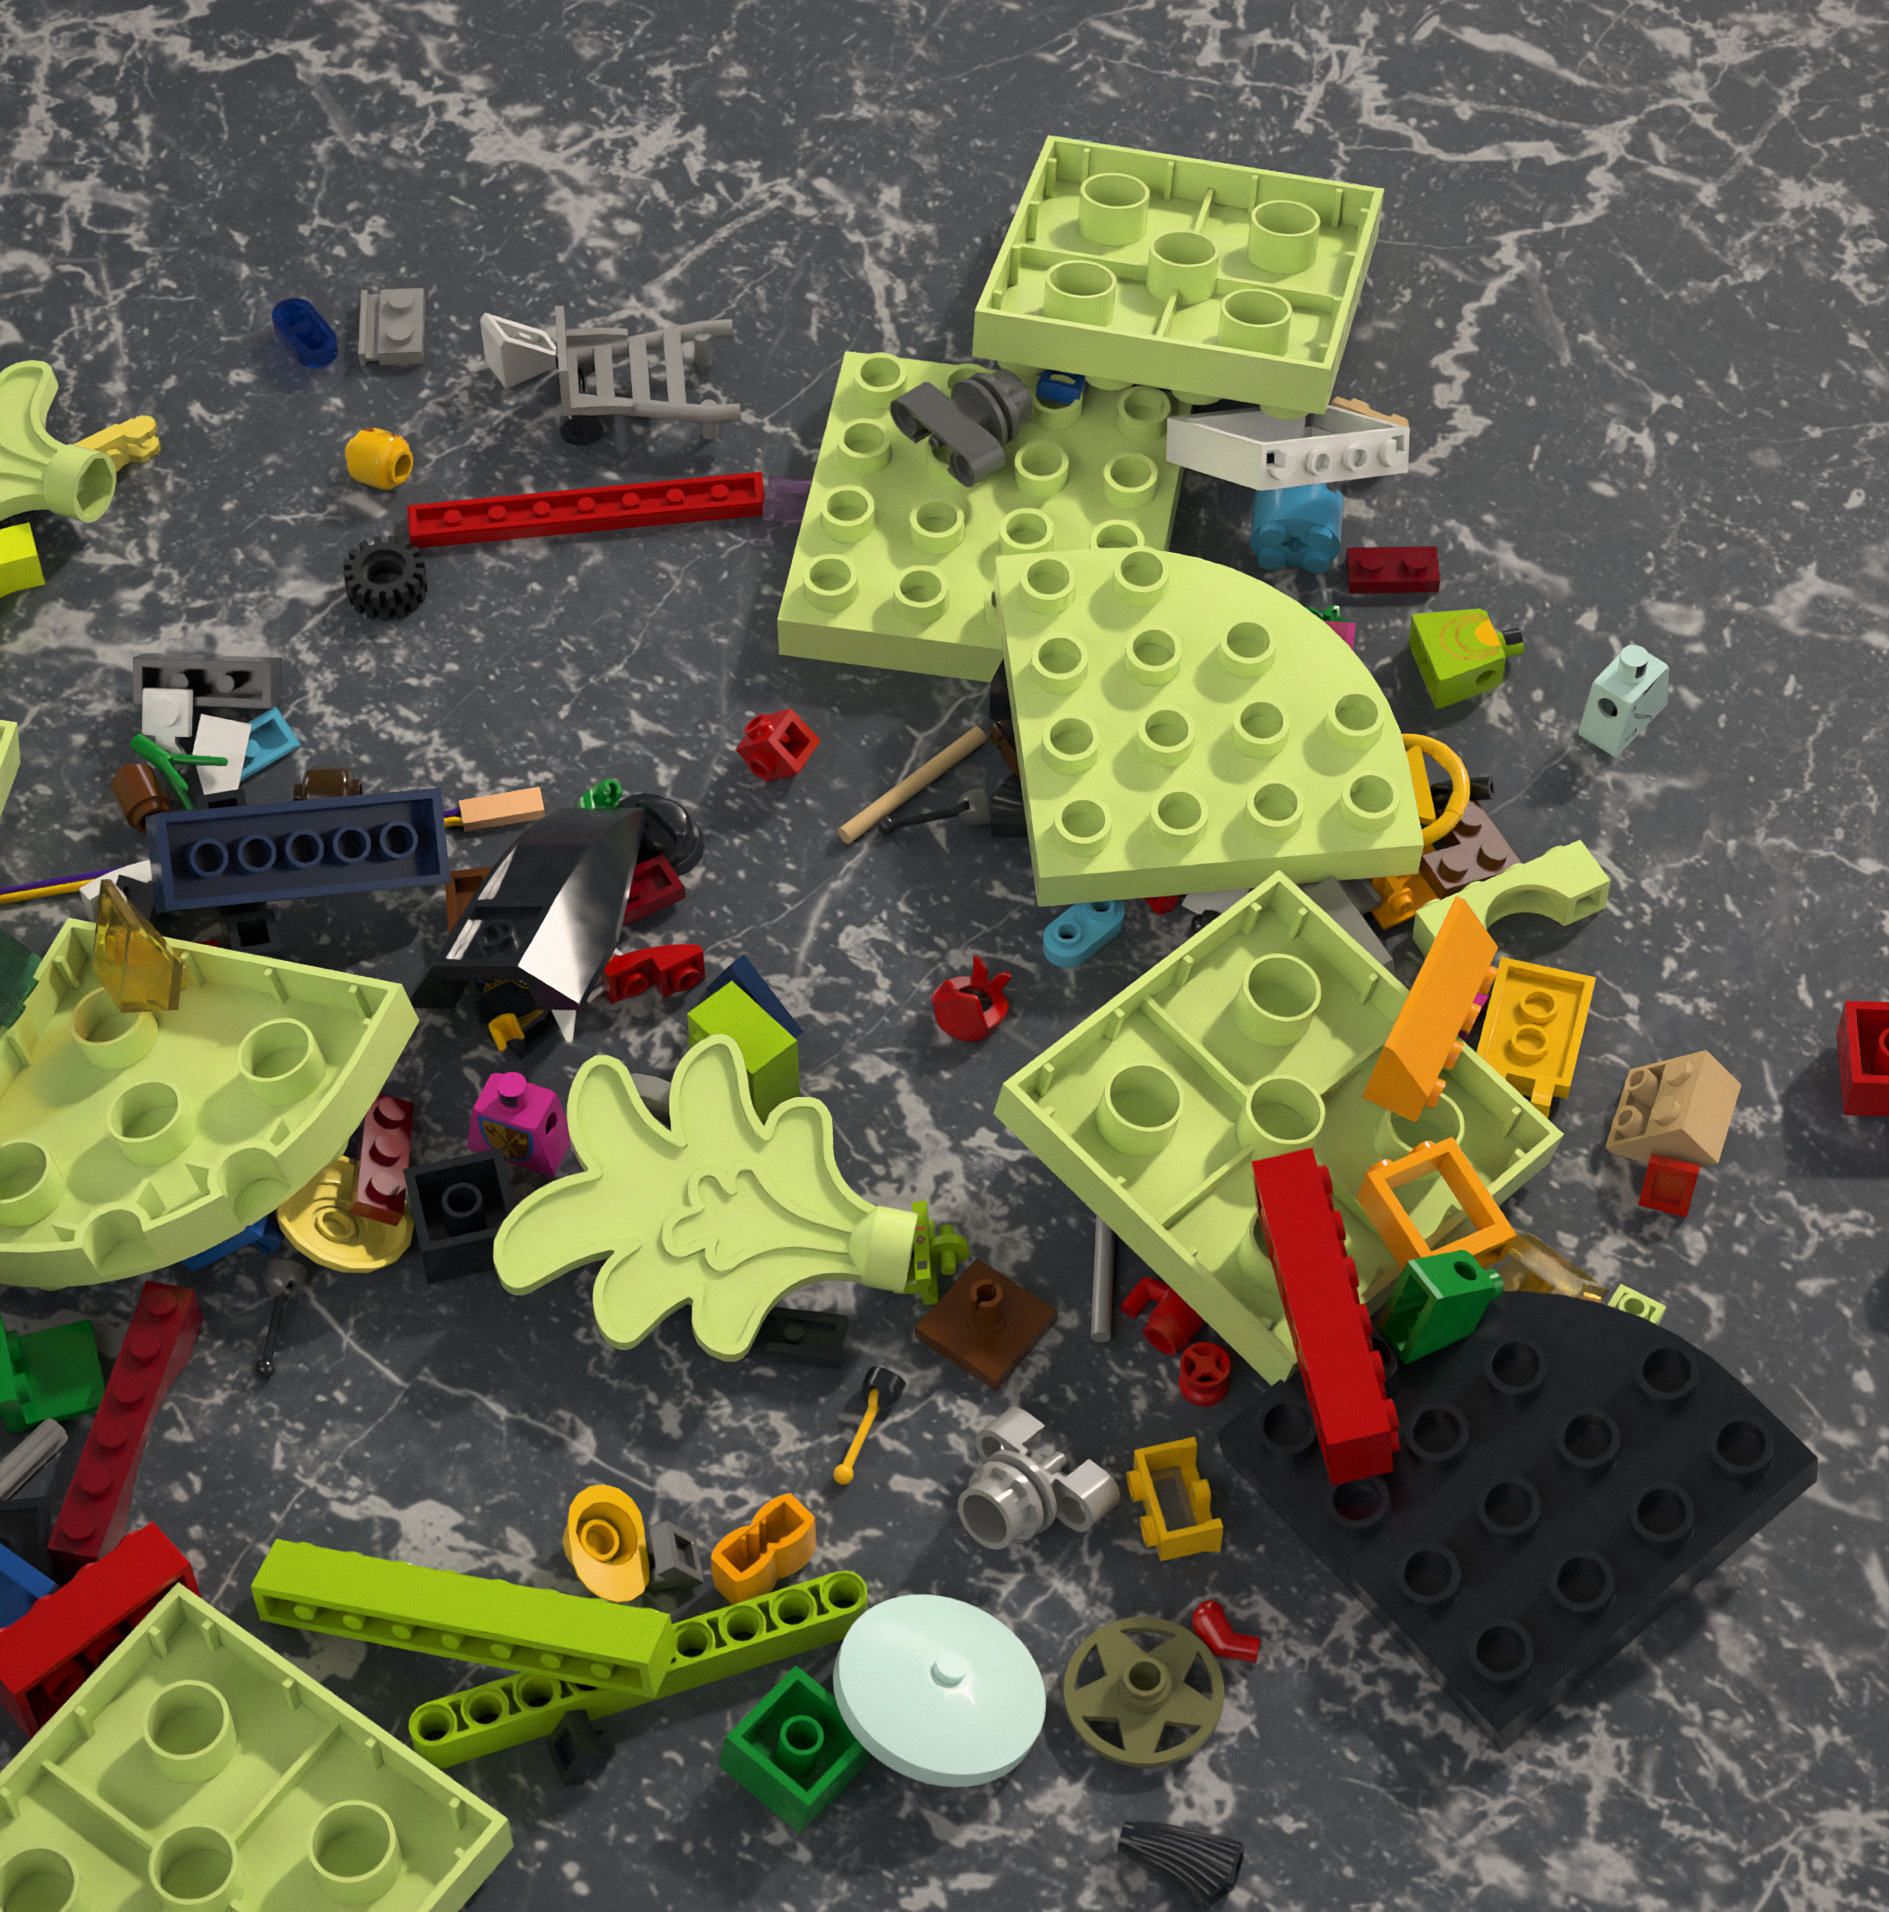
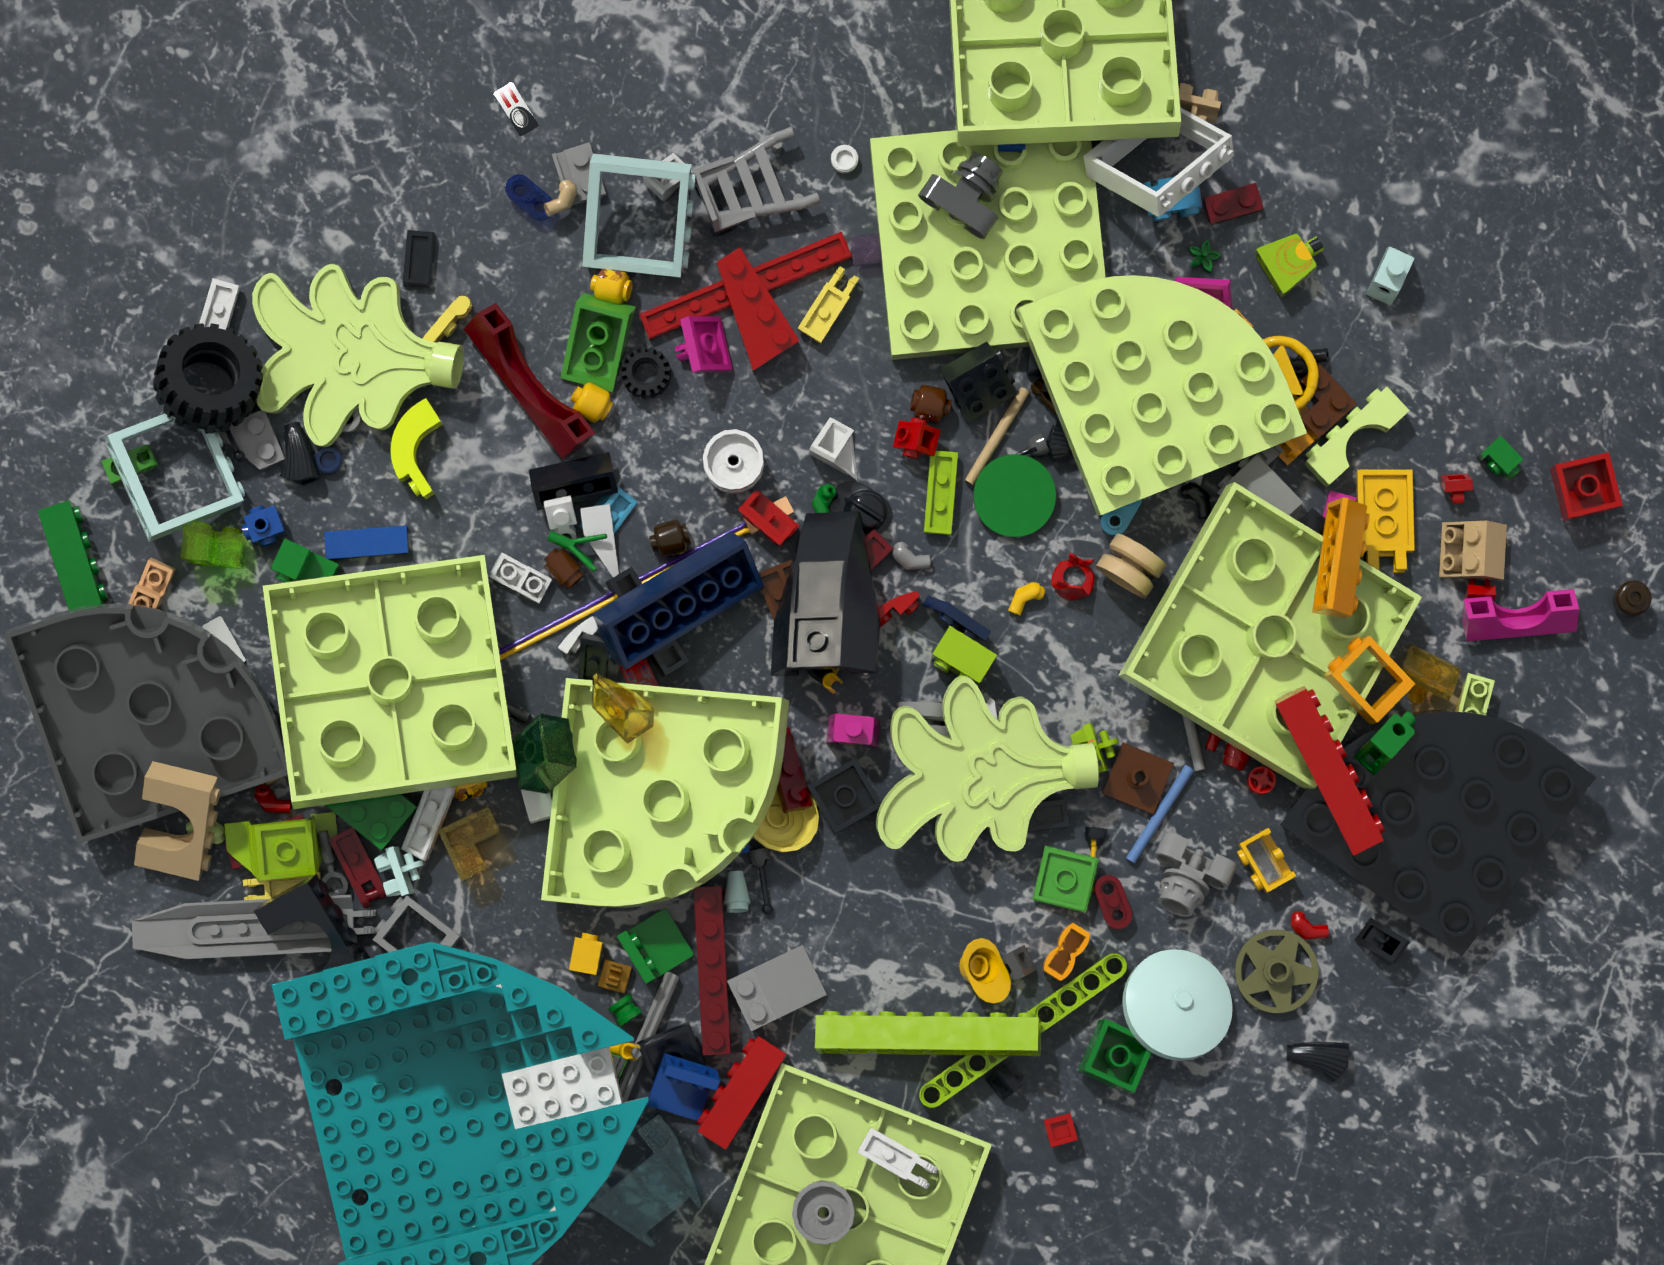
camera: 15 degrees left, 30 degrees up
(65, 799) = (520, 577): none -> white slope
(107, 374) = (419, 258): none -> black tile
(142, 1835) = (806, 1215): none -> light grey wheel
(171, 480) = (497, 342): none -> dark red arch
(220, 1327) = (736, 893): none -> light aqua cone
(226, 1489) = (776, 988): none -> light grey slope
(283, 593) = (591, 402): none -> yellow head
(317, 1785) = (894, 1157): none -> white hinge
(324, 516) = (597, 341): none -> bright green slope
(335, 238) = (516, 109): none -> sticker
(353, 339) = (565, 200): none -> tan arm
(389, 341) = (641, 167): none -> light aqua window
(471, 710) = (740, 476): none -> white wheel
(489, 551) = (704, 345): none -> dark pink tile
(492, 799) = (768, 518): none -> red hinge
(587, 537) = (757, 316): none -> red wedge
(640, 739) = (836, 447): none -> white slope
(651, 1853) = (1060, 1129): none -> red tile
(704, 557) = (827, 307): none -> light yellow hinge
(705, 916) = (908, 559): none -> light grey arm
(791, 835) = (941, 493): none -> lime plate
(801, 391) = (844, 159): none -> white tile
(806, 1444) = (1066, 879): none -> bright green plate
(820, 706) = (930, 403): none -> reddish brown head
(878, 1007) = (1023, 594): none -> yellow arm
(878, 1505) = (1115, 901): none -> dark red plate
(905, 686) = (978, 381): none -> black brick
(912, 864) = (1014, 495): none -> green tile
(1007, 1389) = (1160, 814): none -> medium blue bar
(1067, 981) = (1133, 564): none -> tan wheel
(1358, 1691) = (1382, 941): none -> black slope
(1667, 1013) = (1456, 485): none -> red tile
(1753, 991) = (1501, 458): none -> green brick
(1796, 1234) = (1552, 614): none -> dark pink arch

